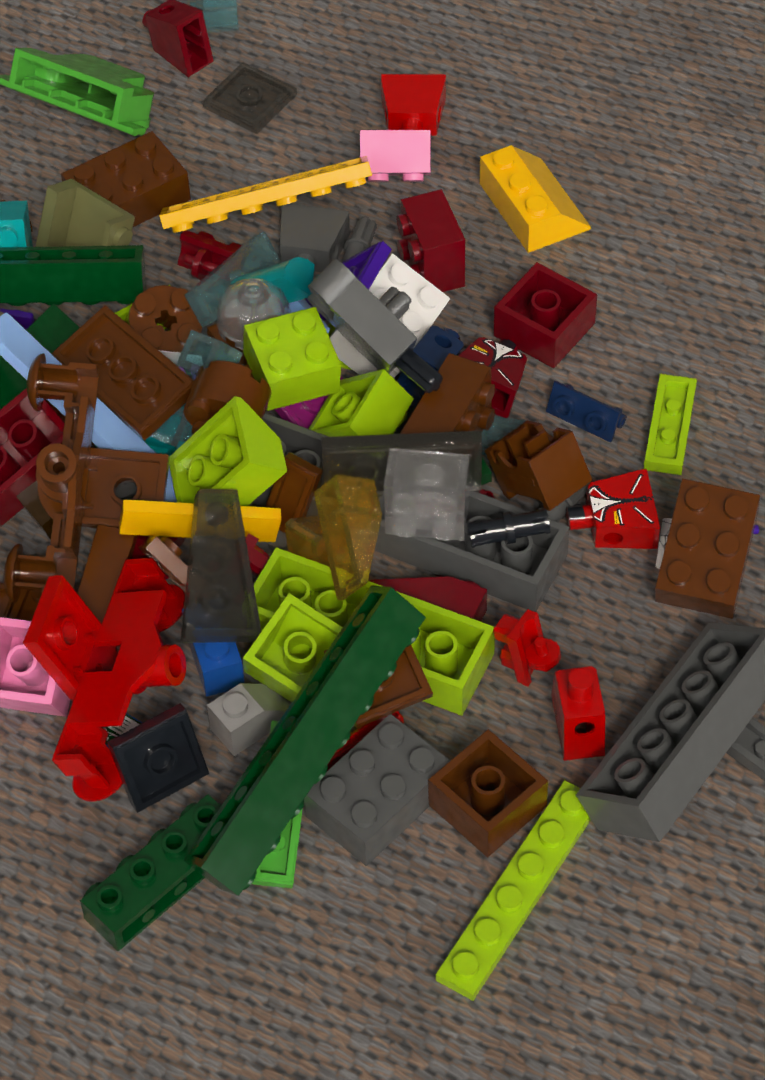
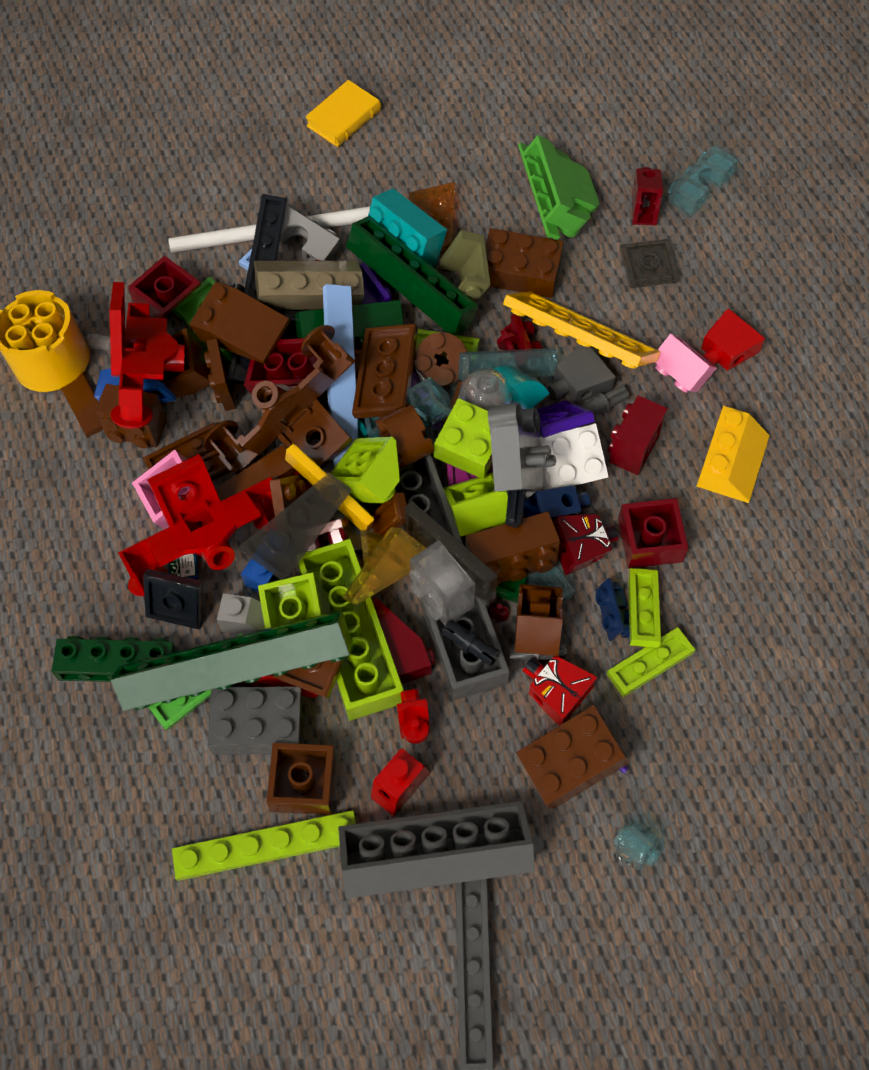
camera: 45 degrees right, 10 degrees up
(612, 382) = (644, 608): none -> lime plate

